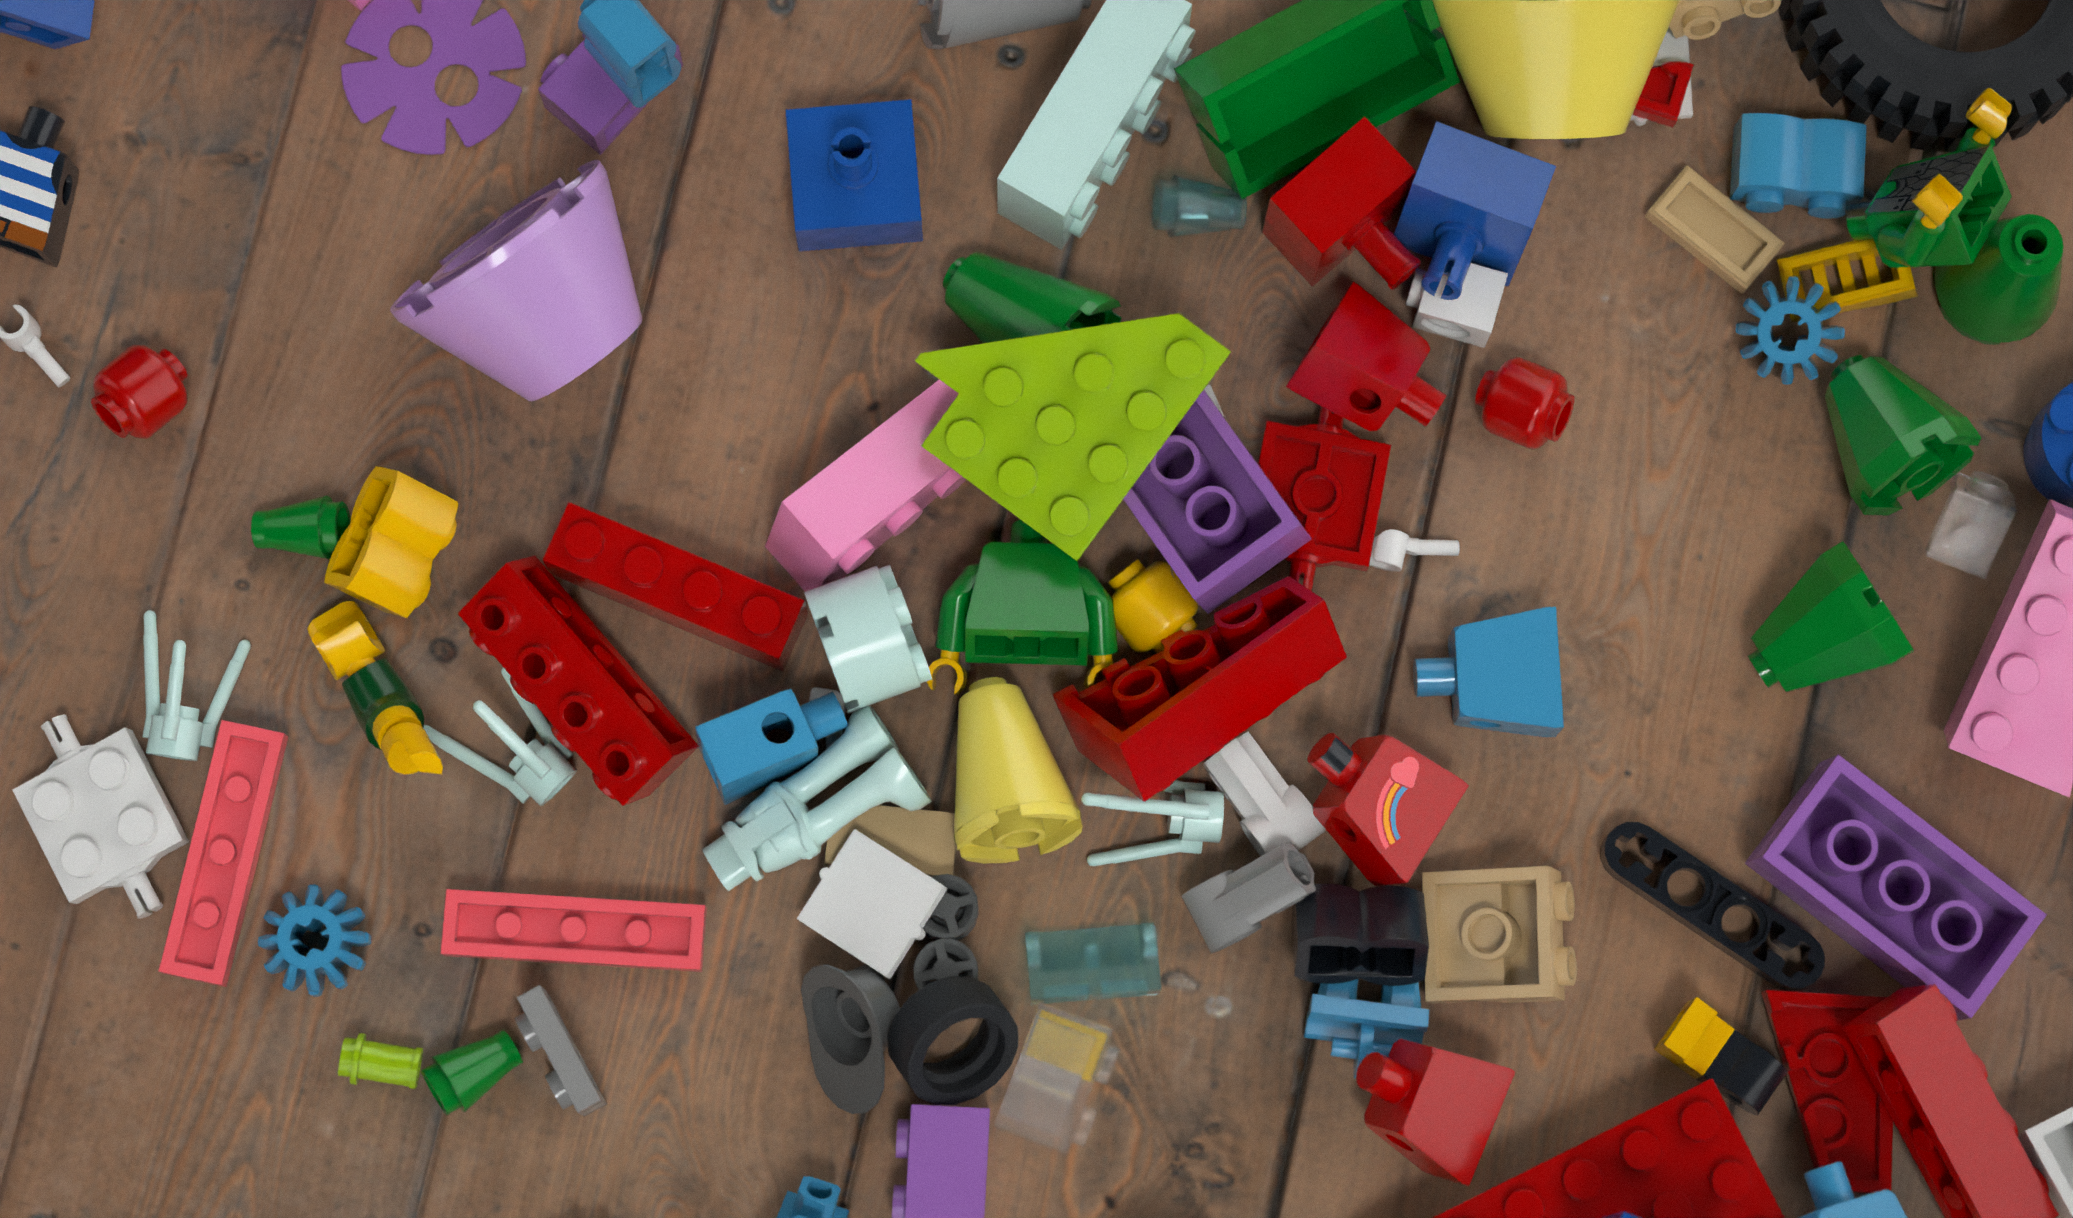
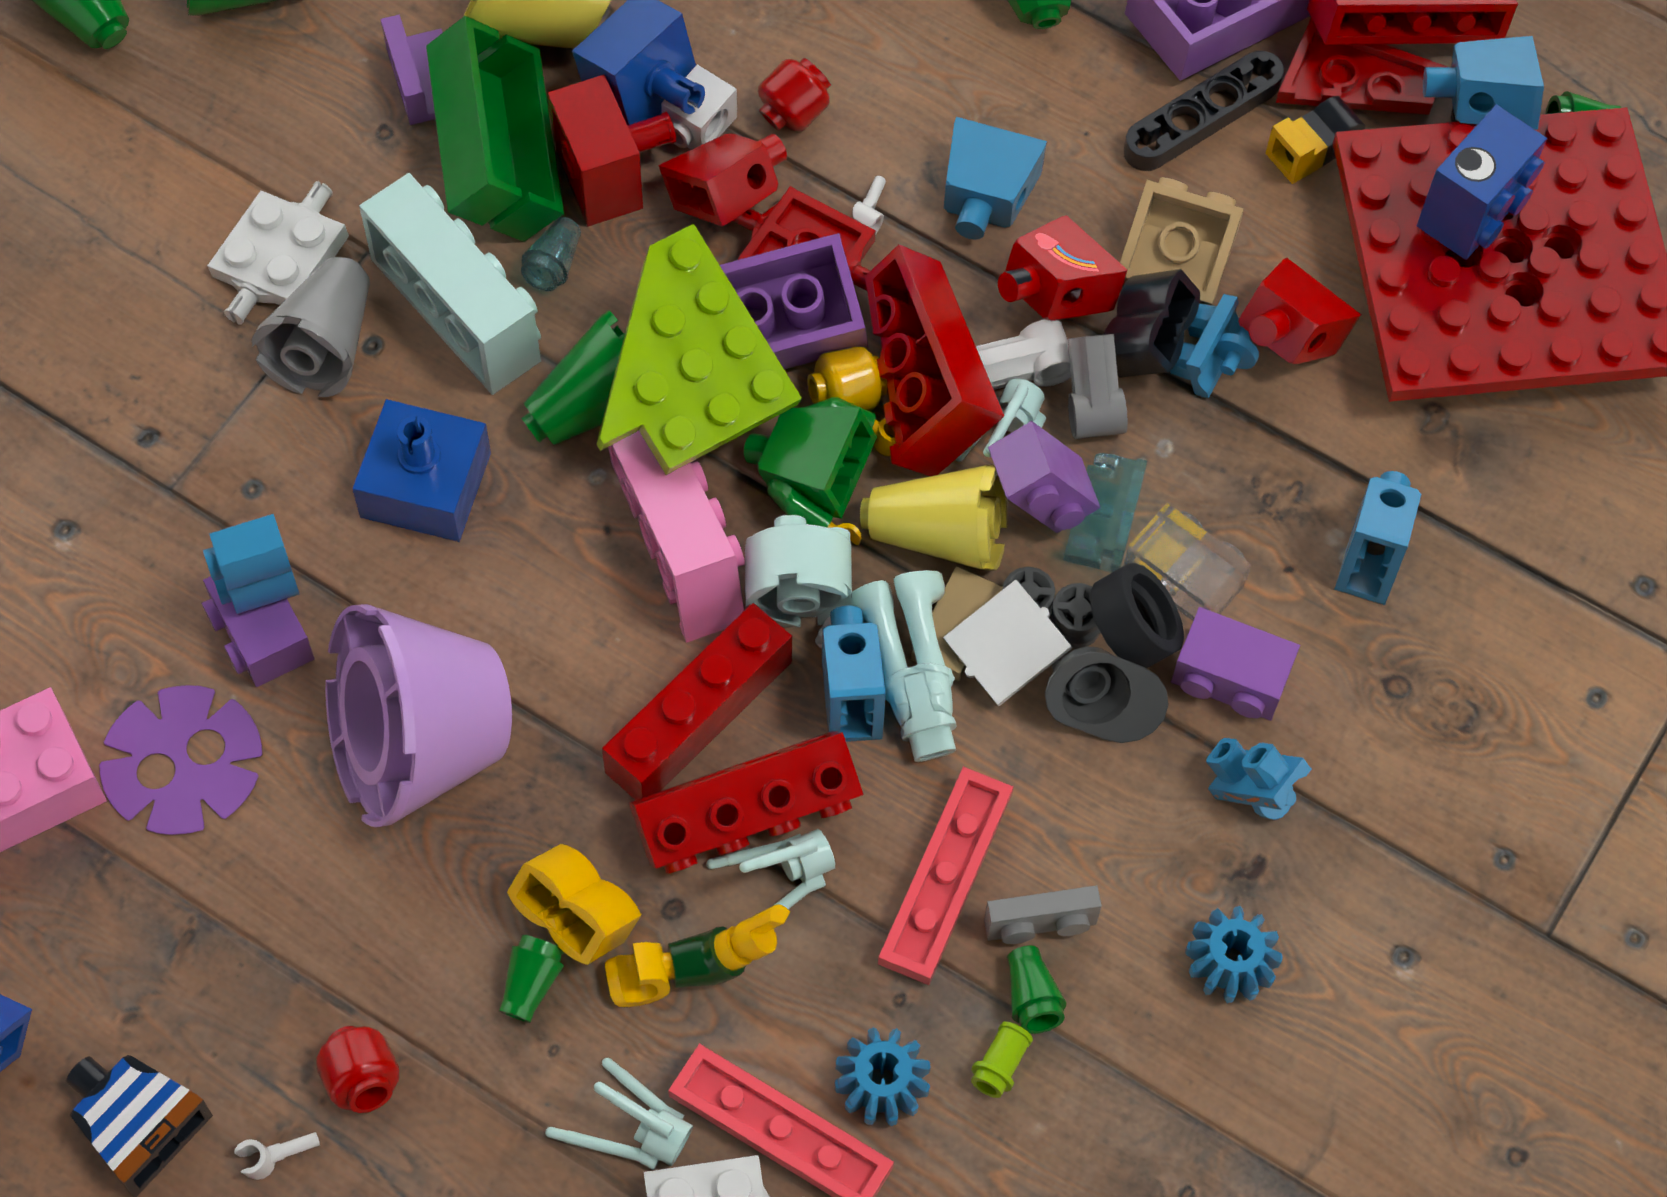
camera: 70 degrees left, 15 degrees down
(1085, 876) = (1044, 477): none -> medium lavender brick

